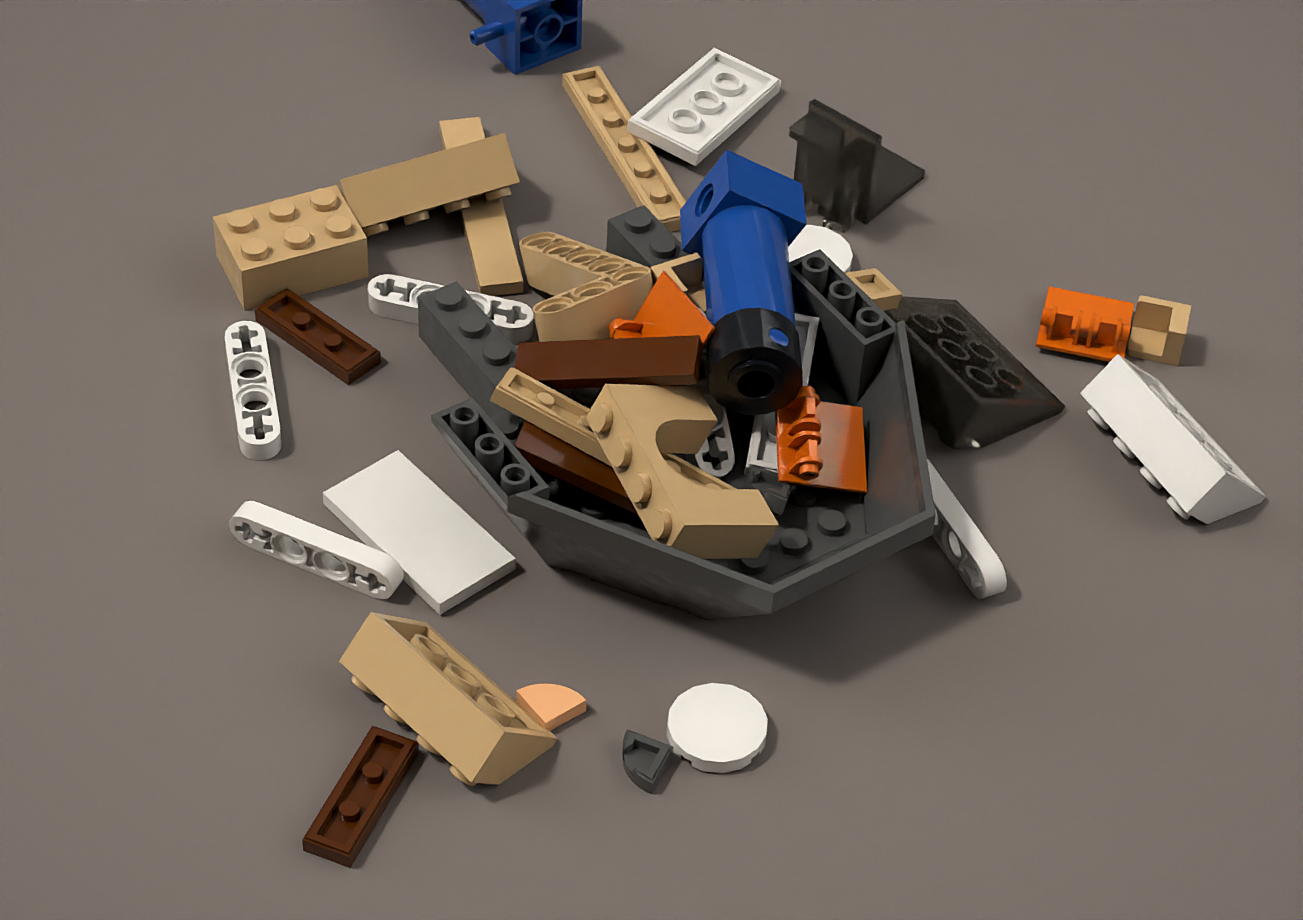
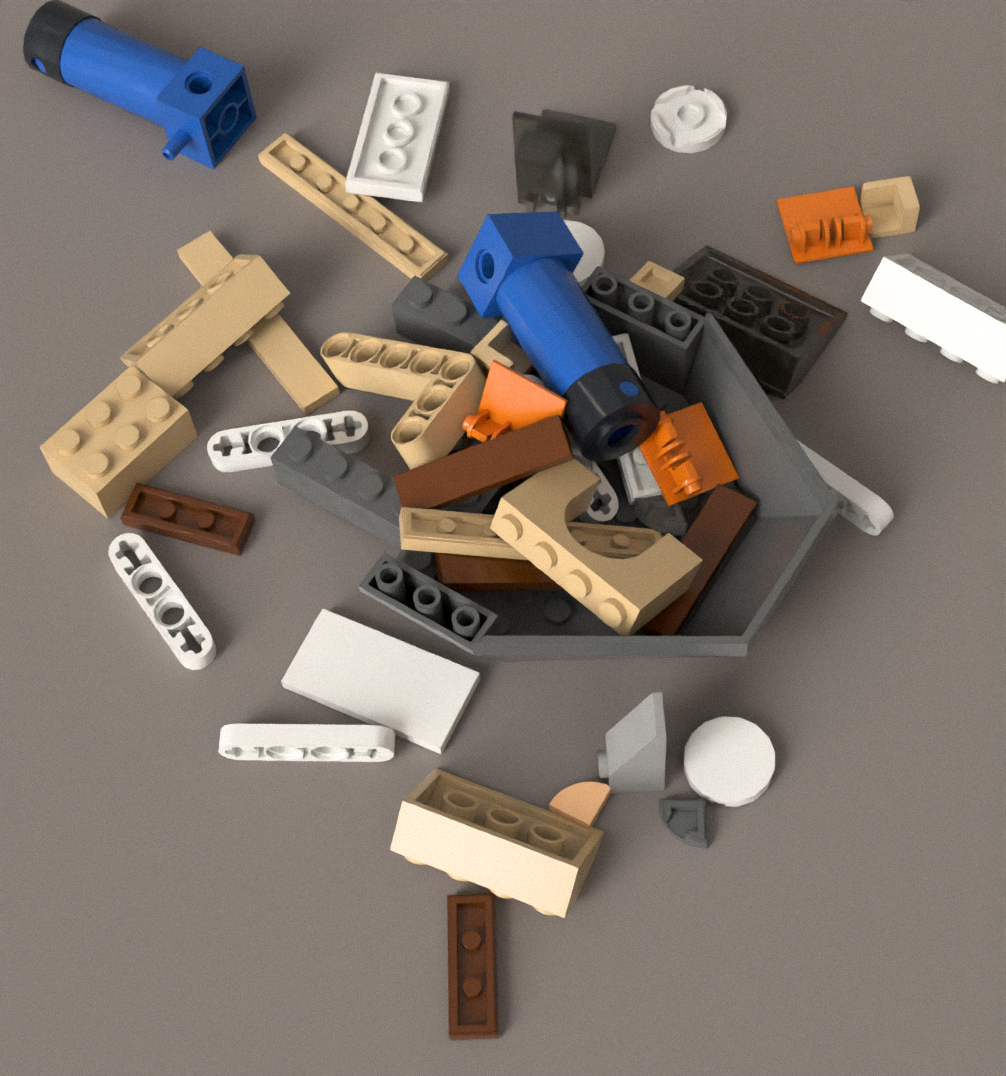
camera: 15 degrees left, 15 degrees up
(626, 670) = (636, 749): none -> light grey slope
(804, 532) = (711, 539): none -> reddish brown tile
(1001, 192) = (688, 119): none -> white tile

